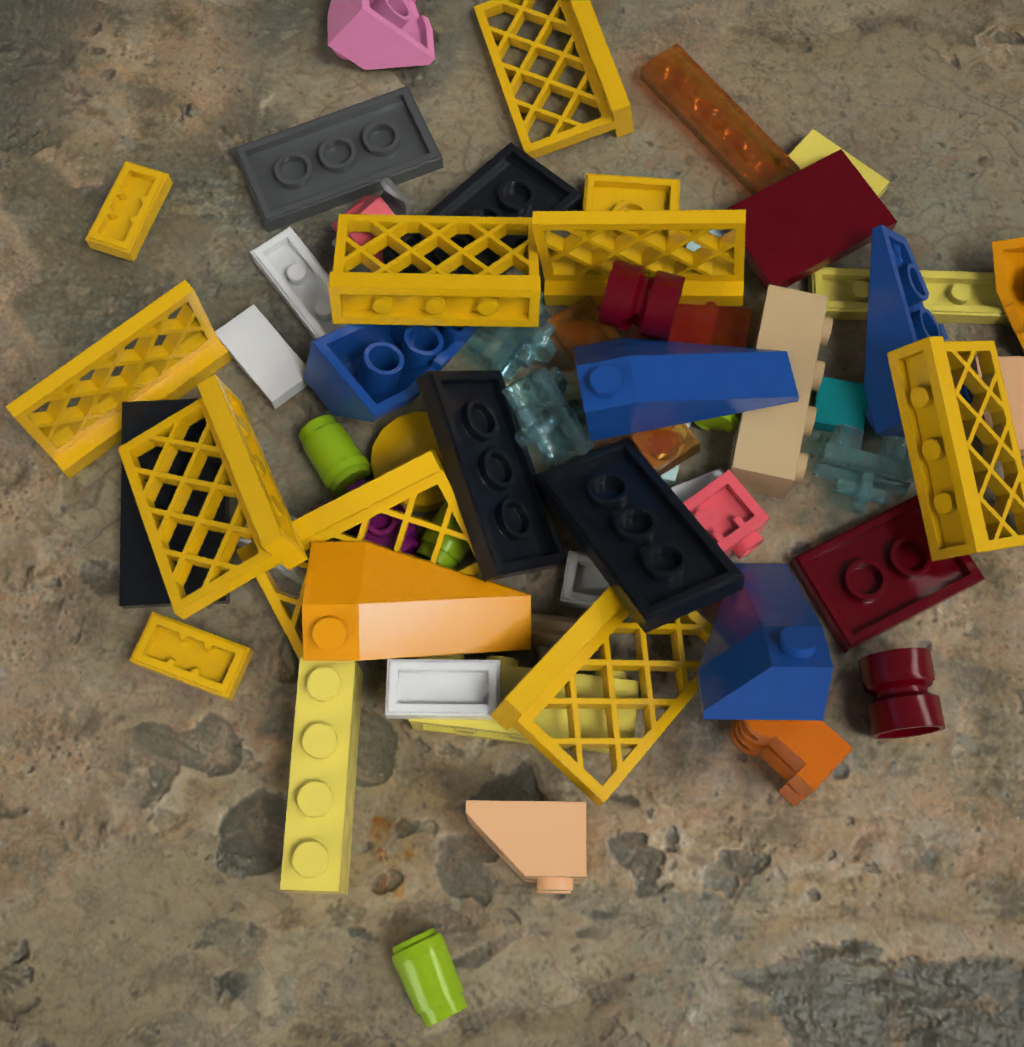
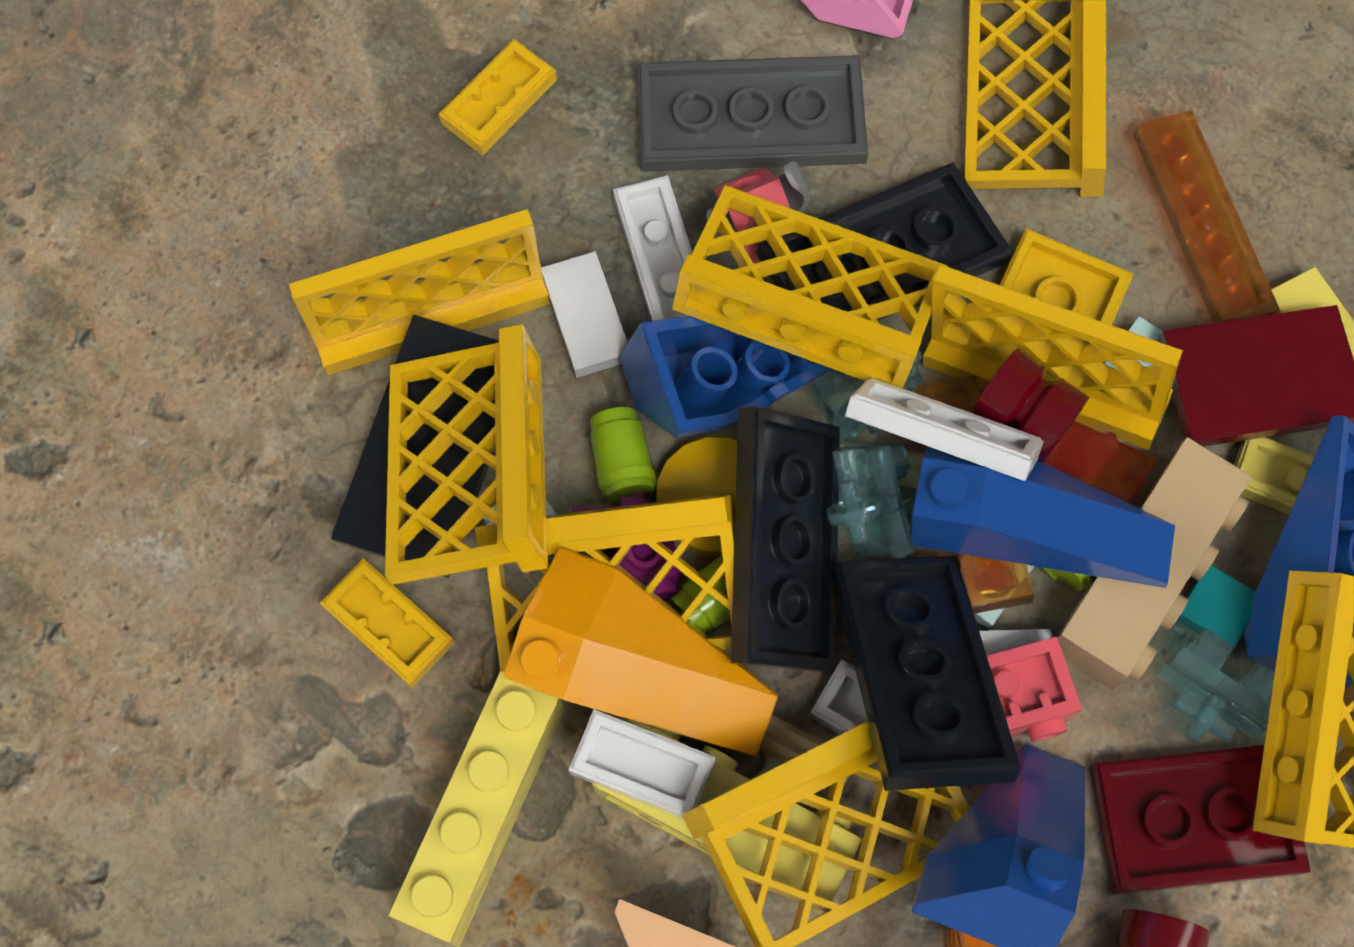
camera: 20 degrees right, 0 degrees up
(583, 338) = (945, 428): none -> white tile

